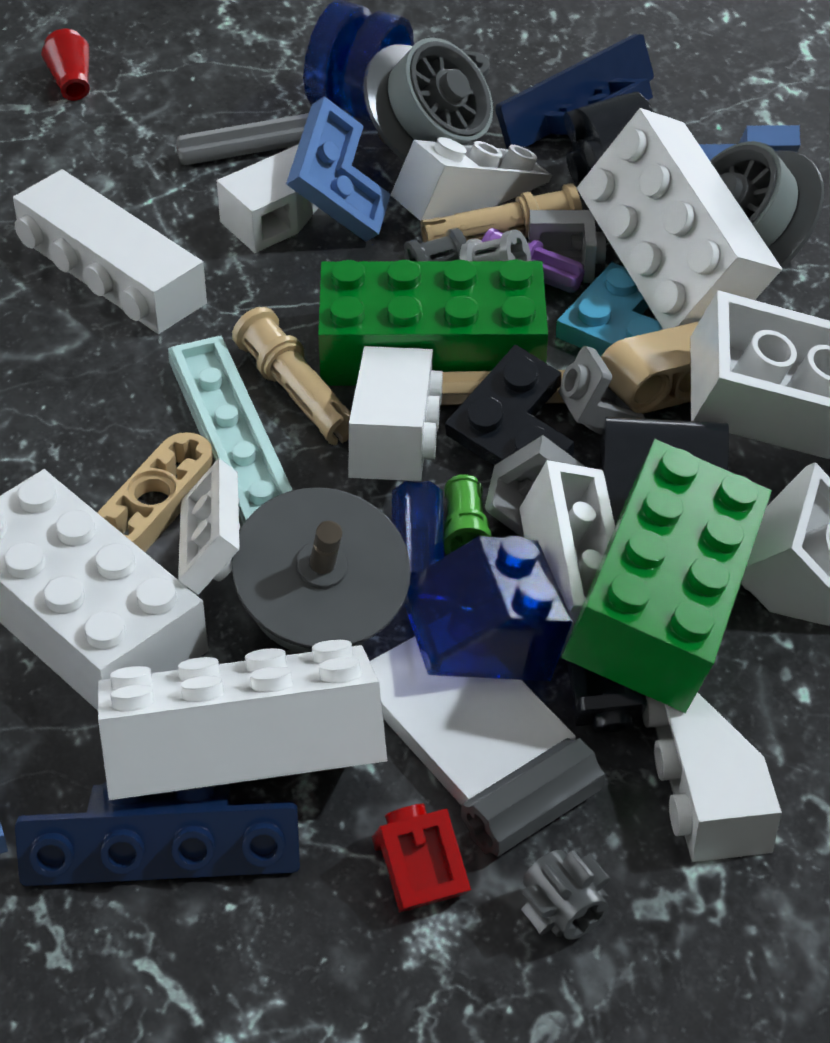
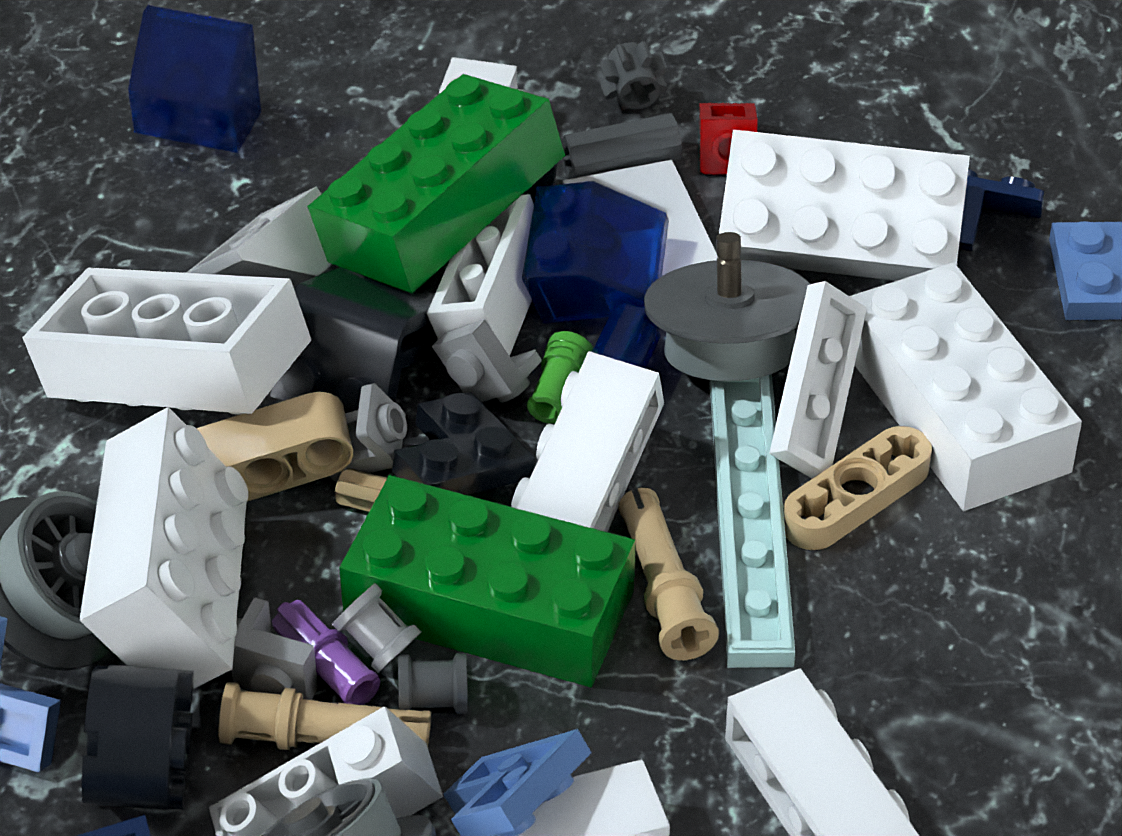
camera: 160 degrees left, 0 degrees up
(606, 312) = (282, 556): medium azure plate -> none

